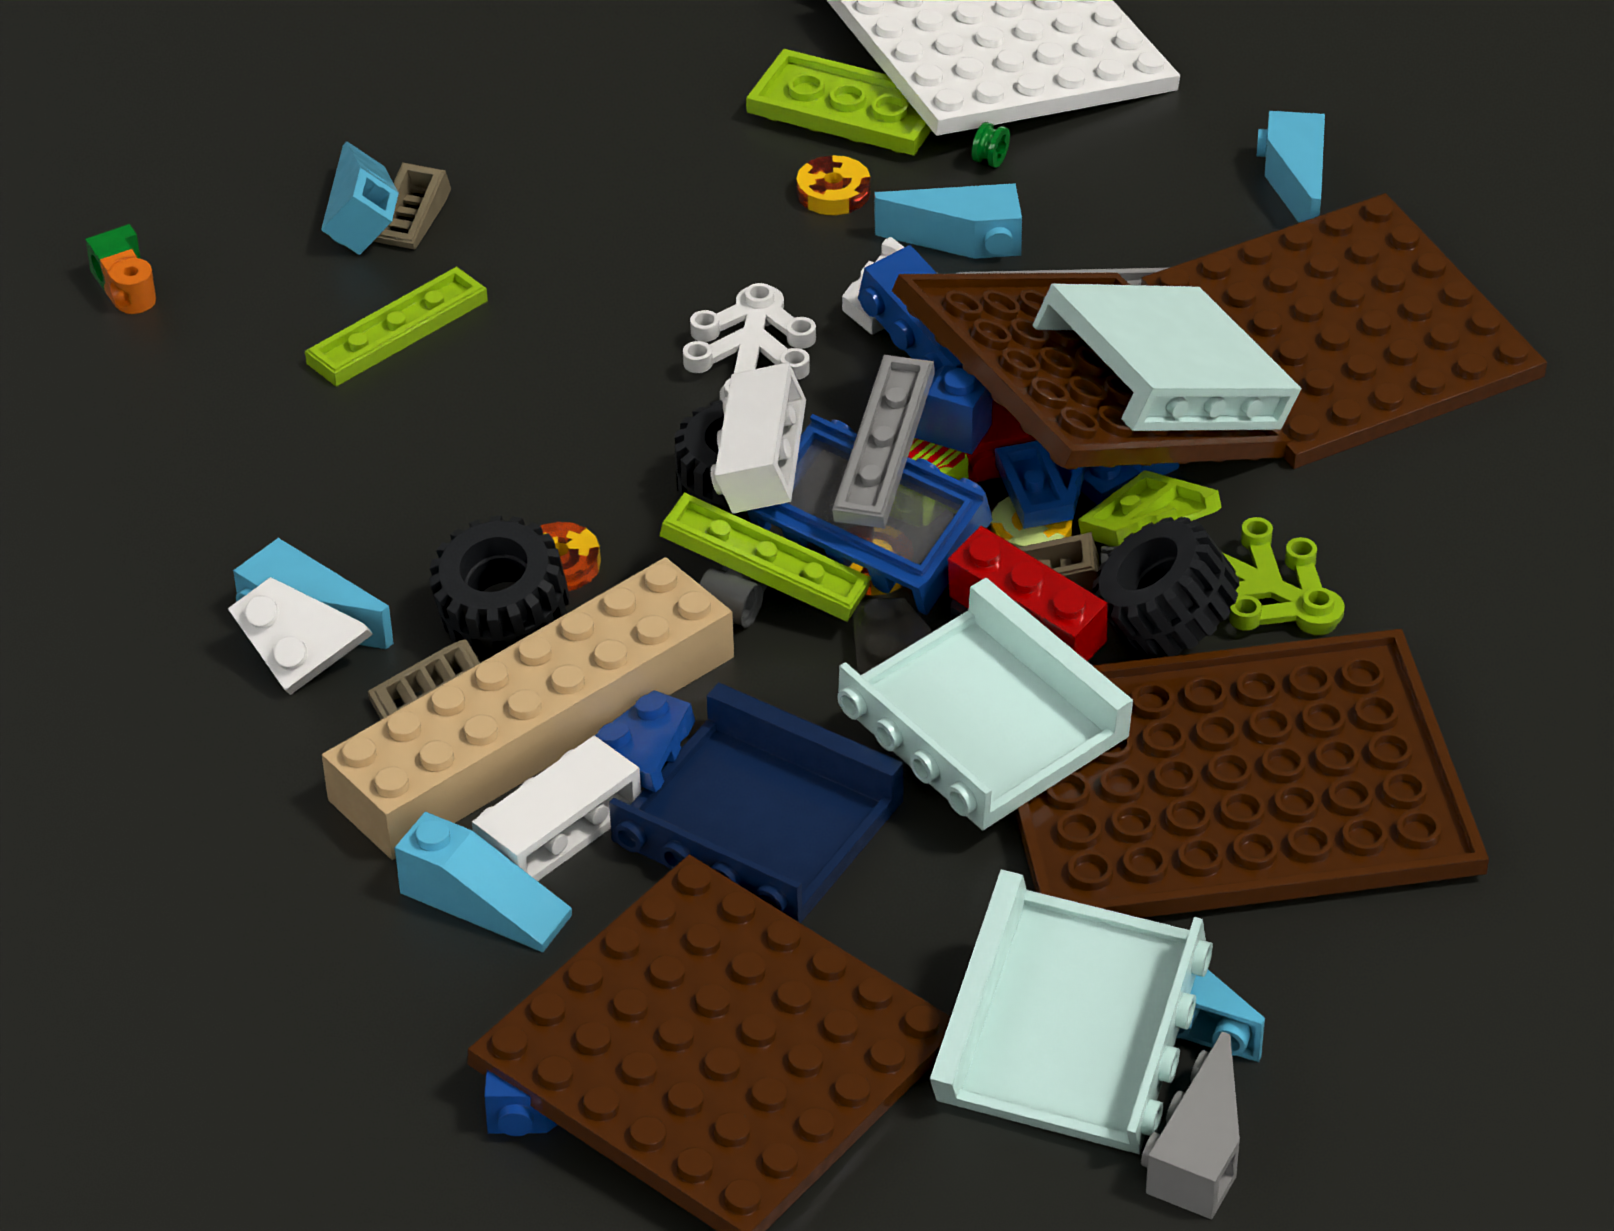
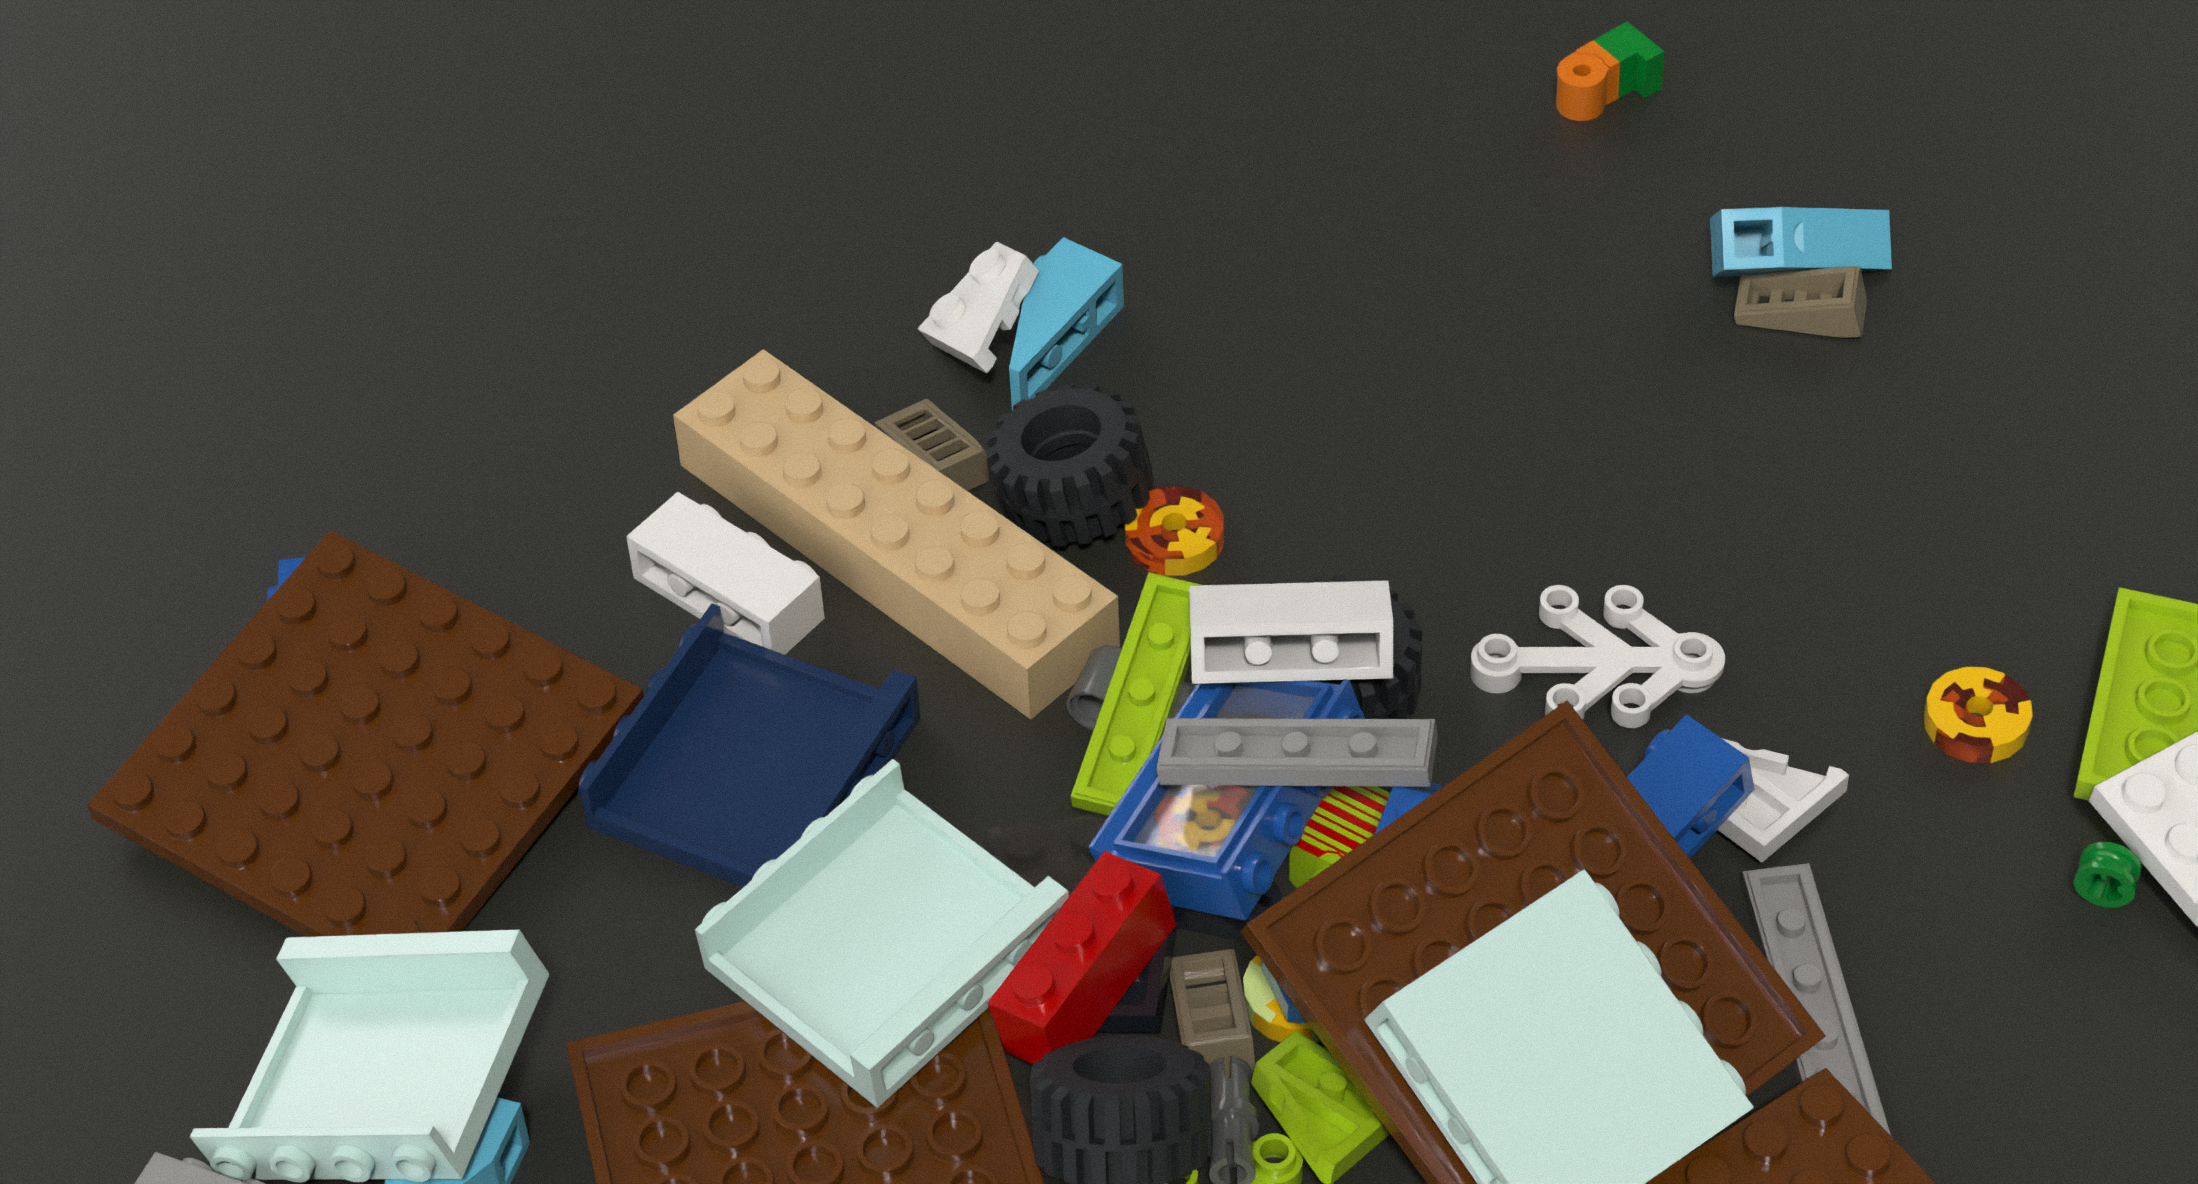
camera: 85 degrees right, 5 degrees up
(396, 326) = (1576, 327): lime tile -> none
(477, 883) = (623, 492): medium azure slope -> none
(650, 734) = (853, 638): blue wing -> none
(955, 220) = (1920, 871): medium azure slope -> none

